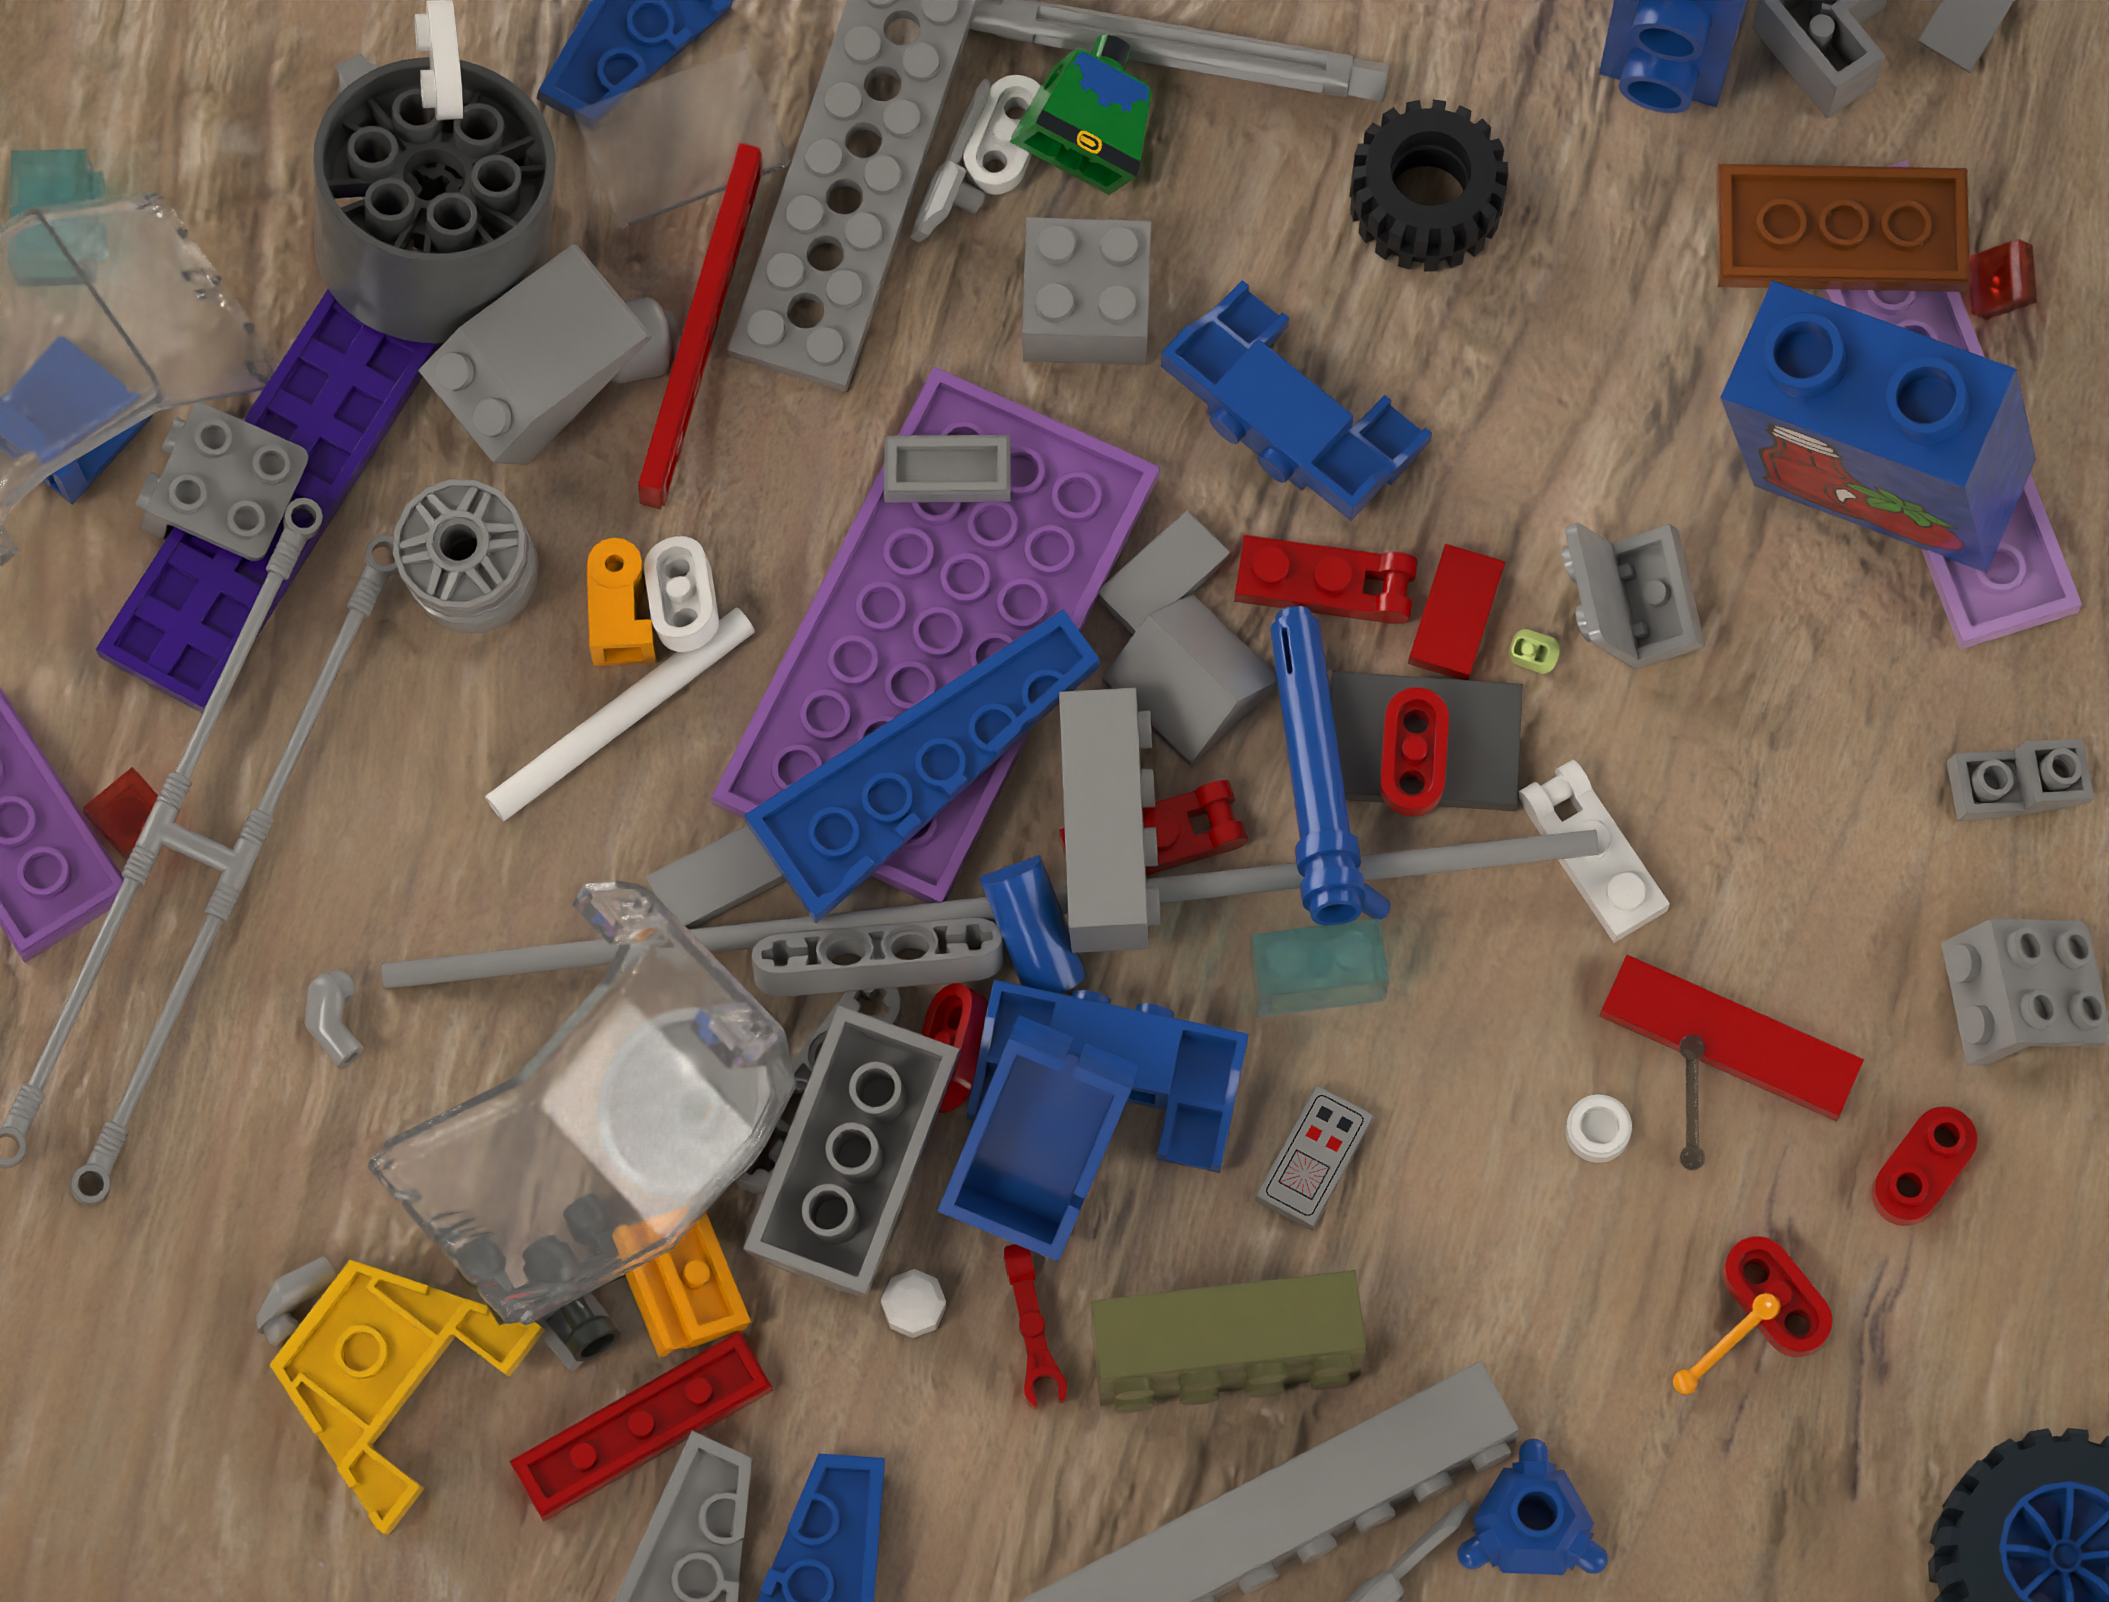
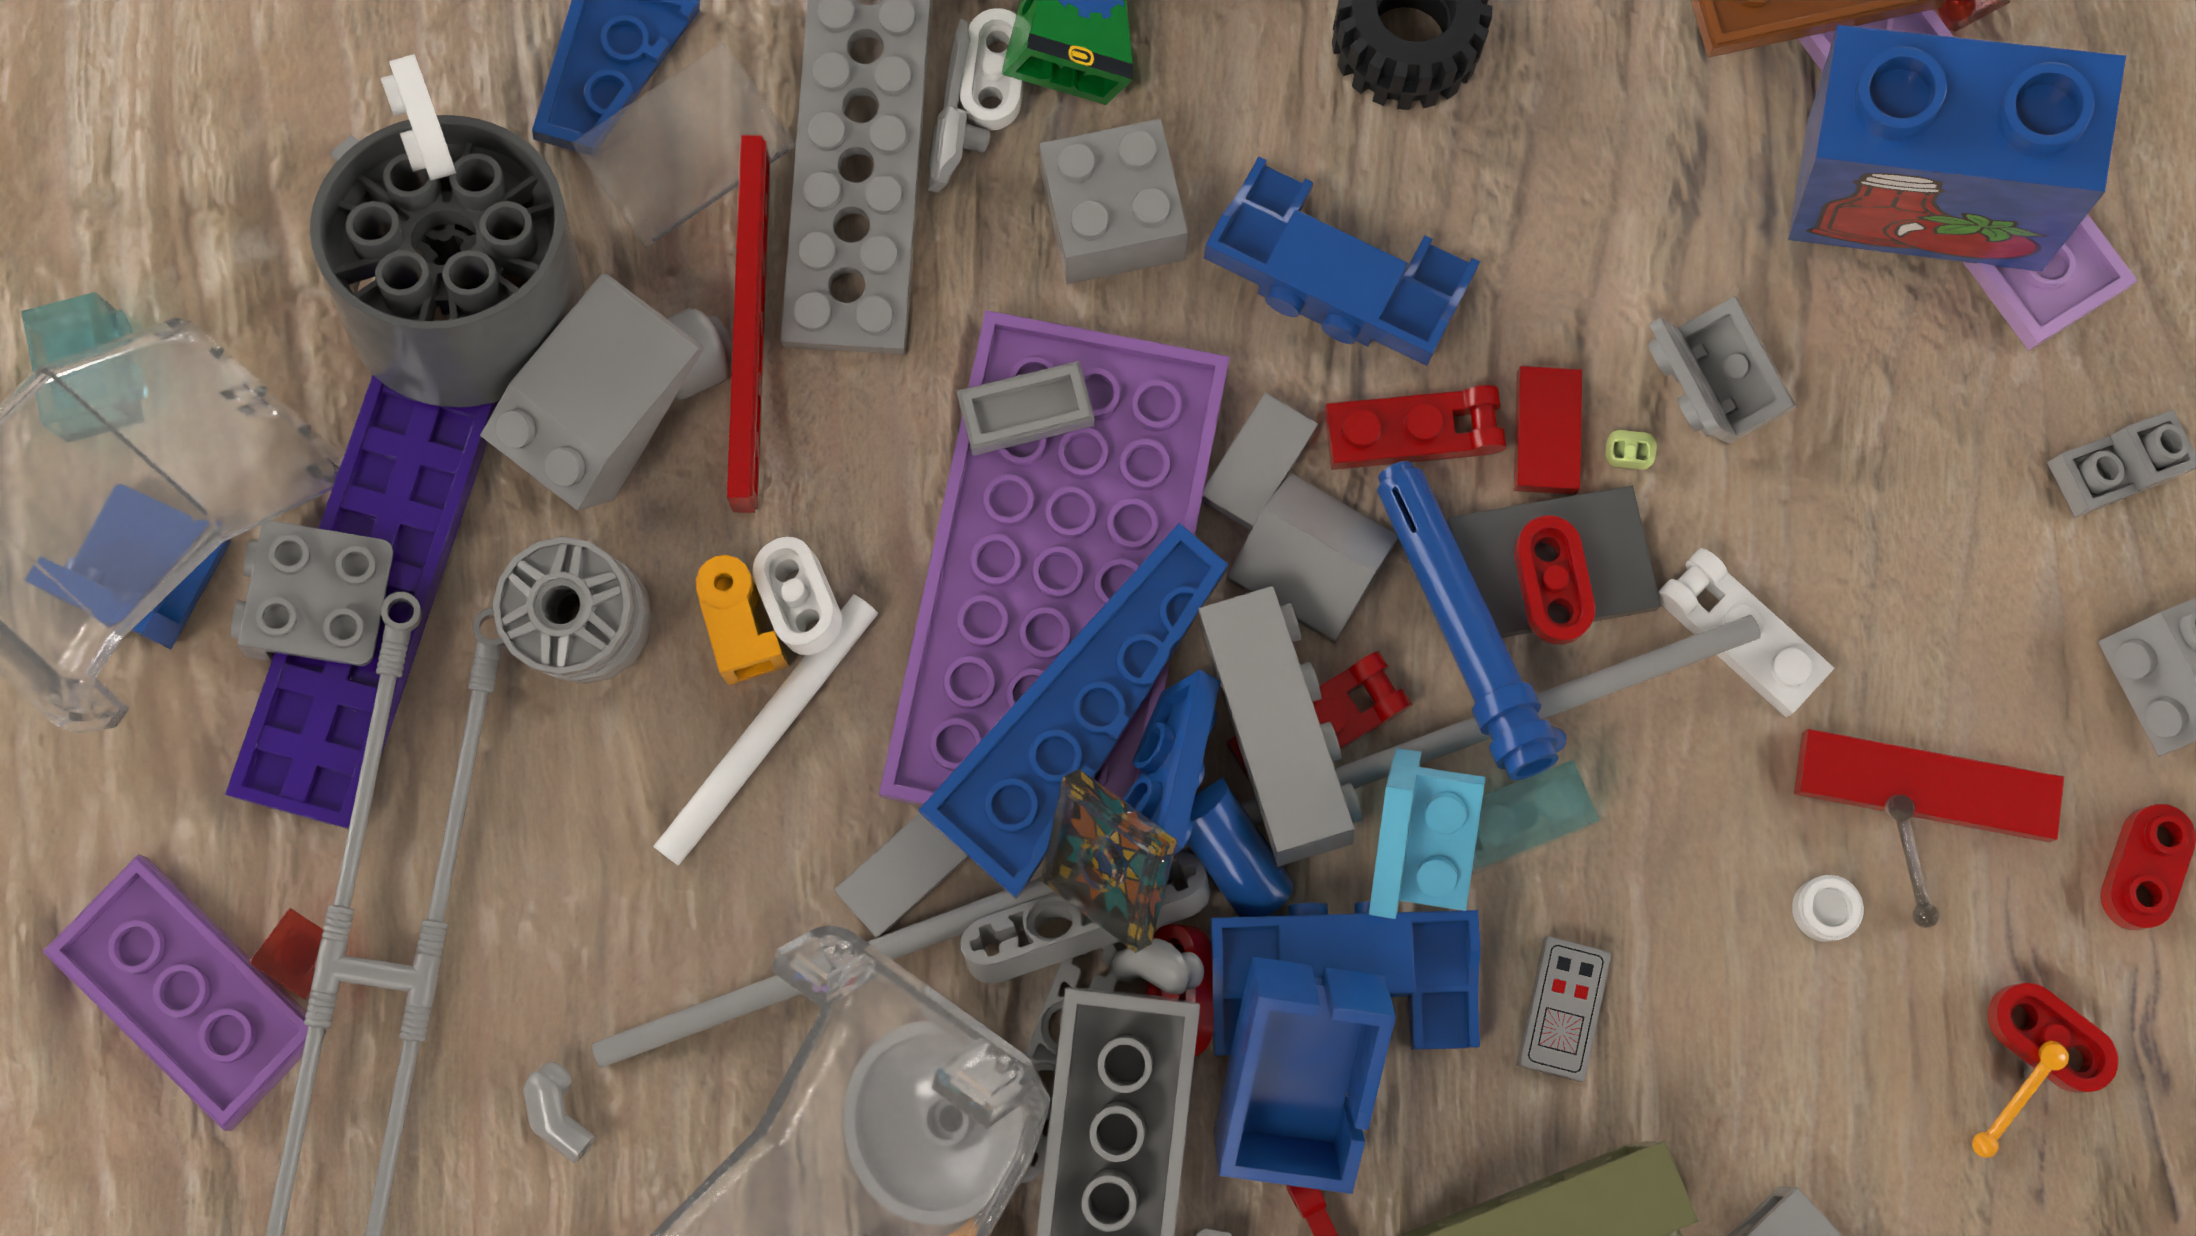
camera: 15 degrees left, 5 degrees up
(908, 897) = (1108, 860): none -> clear smoke tile
(934, 1011) = (1161, 966): none -> light grey arm
(993, 833) = (1174, 753): none -> blue wing
(1212, 951) = (1425, 836): none -> medium azure bracket

